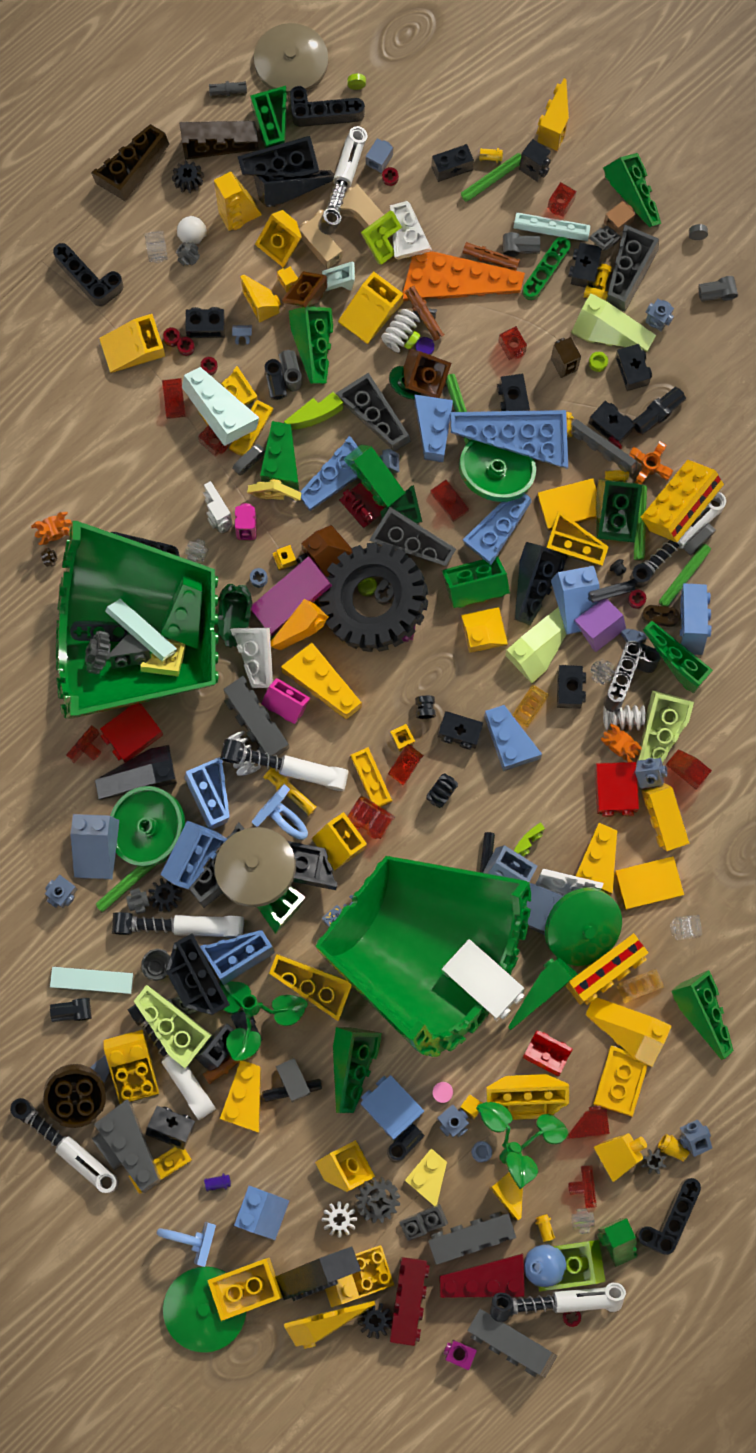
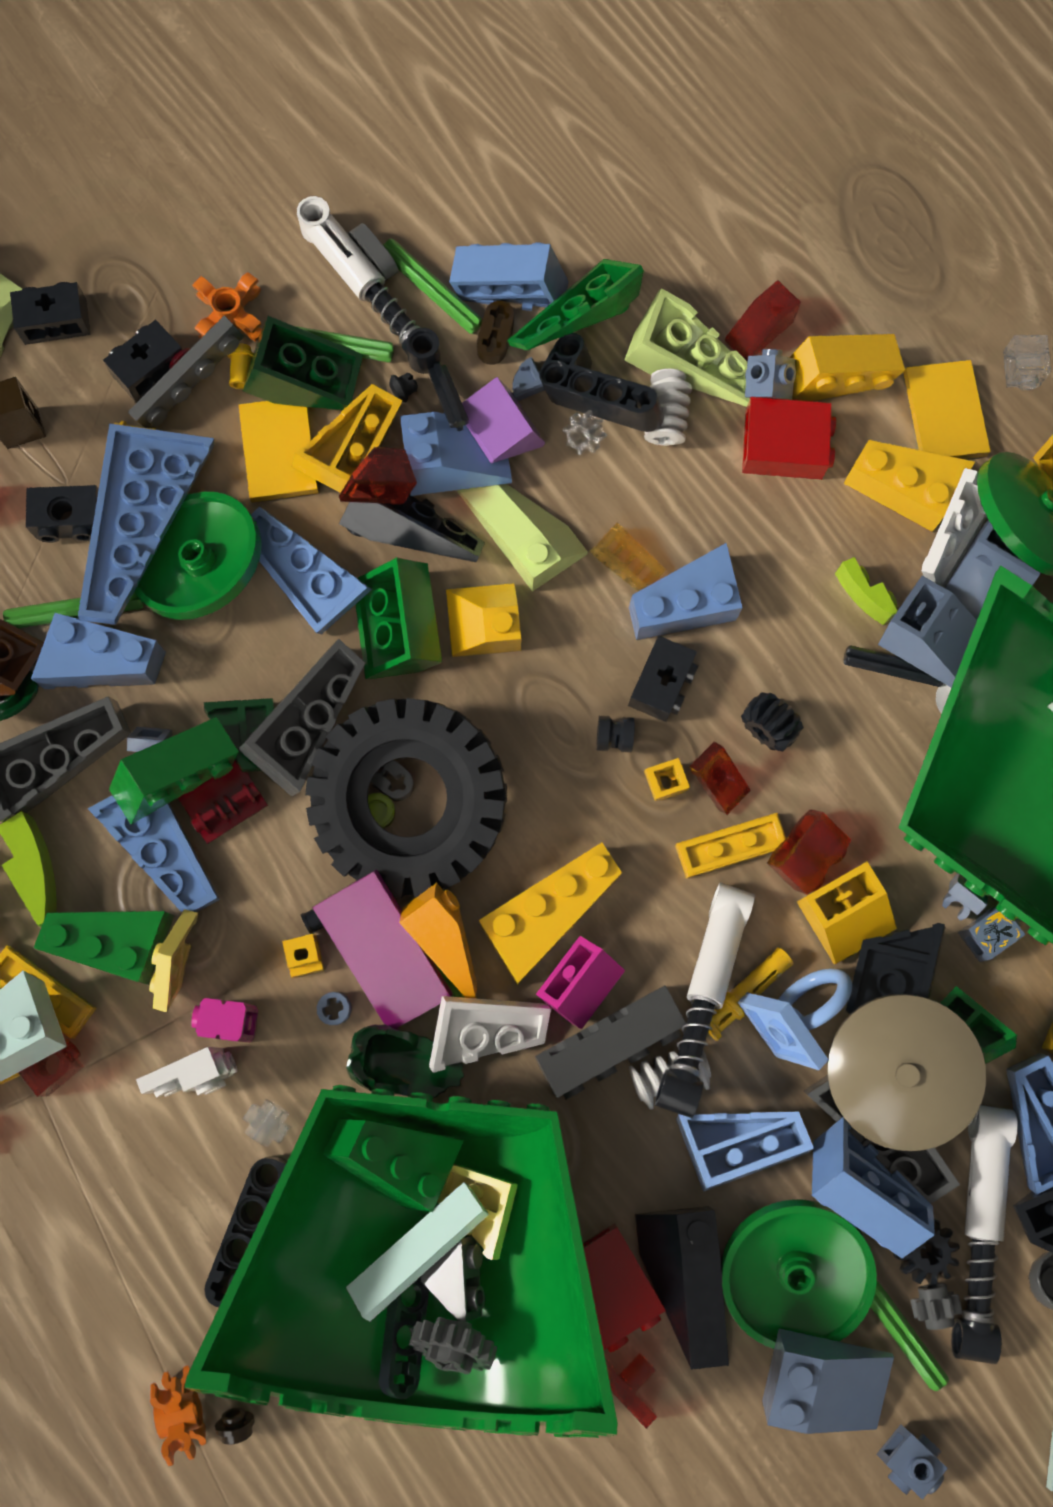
camera: 85 degrees left, 0 degrees up
(248, 459) = (100, 1002): dark grey beam -> none
(325, 547) = (299, 875): reddish brown slope -> none
(449, 500) = (239, 648): clear red tile -> none
(550, 558) = (381, 478): none -> clear red slope
(565, 697) = (589, 498): black brick -> none
(598, 361) = (29, 370): lime tile -> none
(621, 743) = (717, 415): orange pin -> none
(632, 602) = (462, 354): dark red bush -> none
(659, 410) = (135, 281): black piece -> none
(682, 500) = (305, 261): yellow brick -> none

